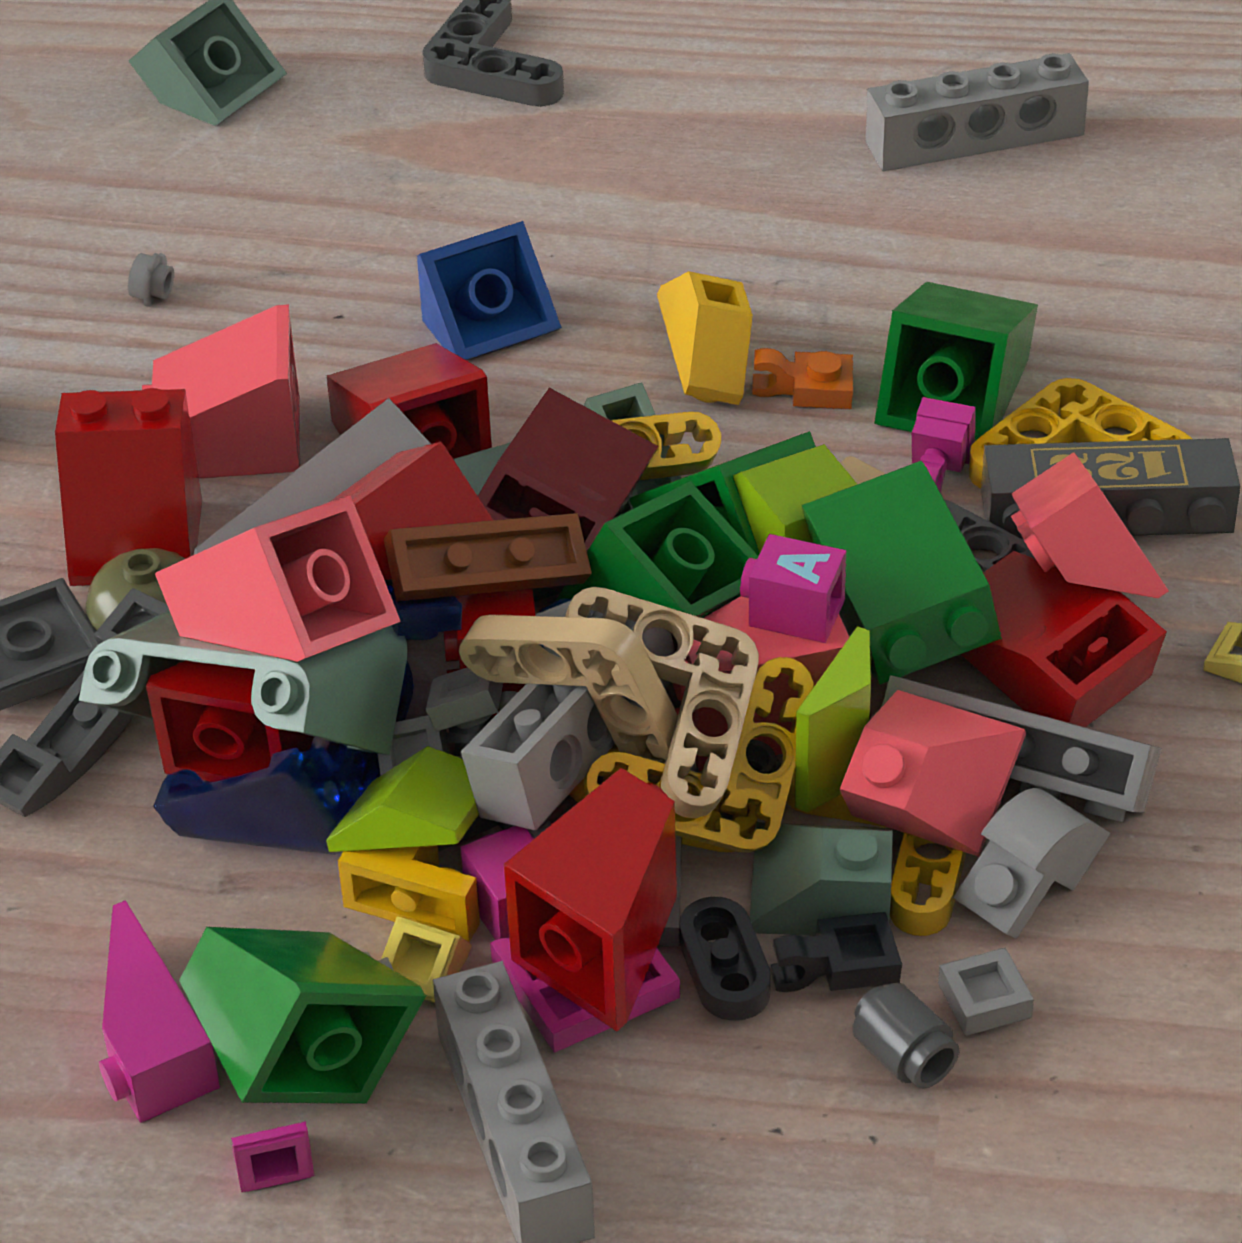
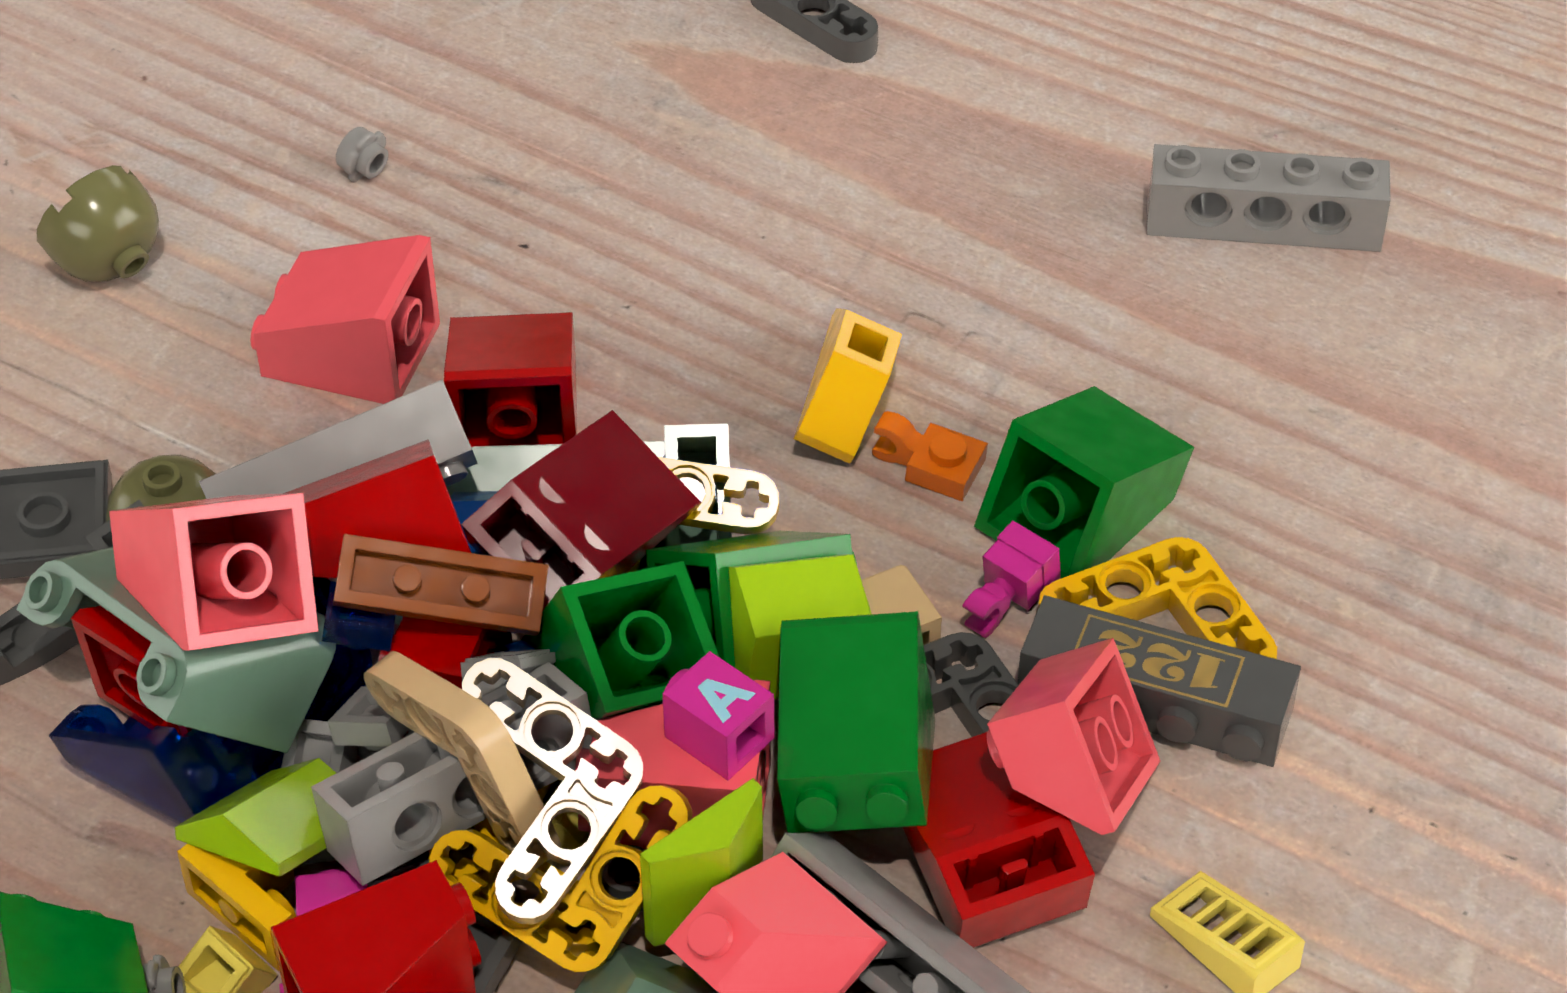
camera: 20 degrees right, 5 degrees up
(125, 476) = (202, 377): red slope -> none
(485, 293) = (660, 267): blue slope -> none

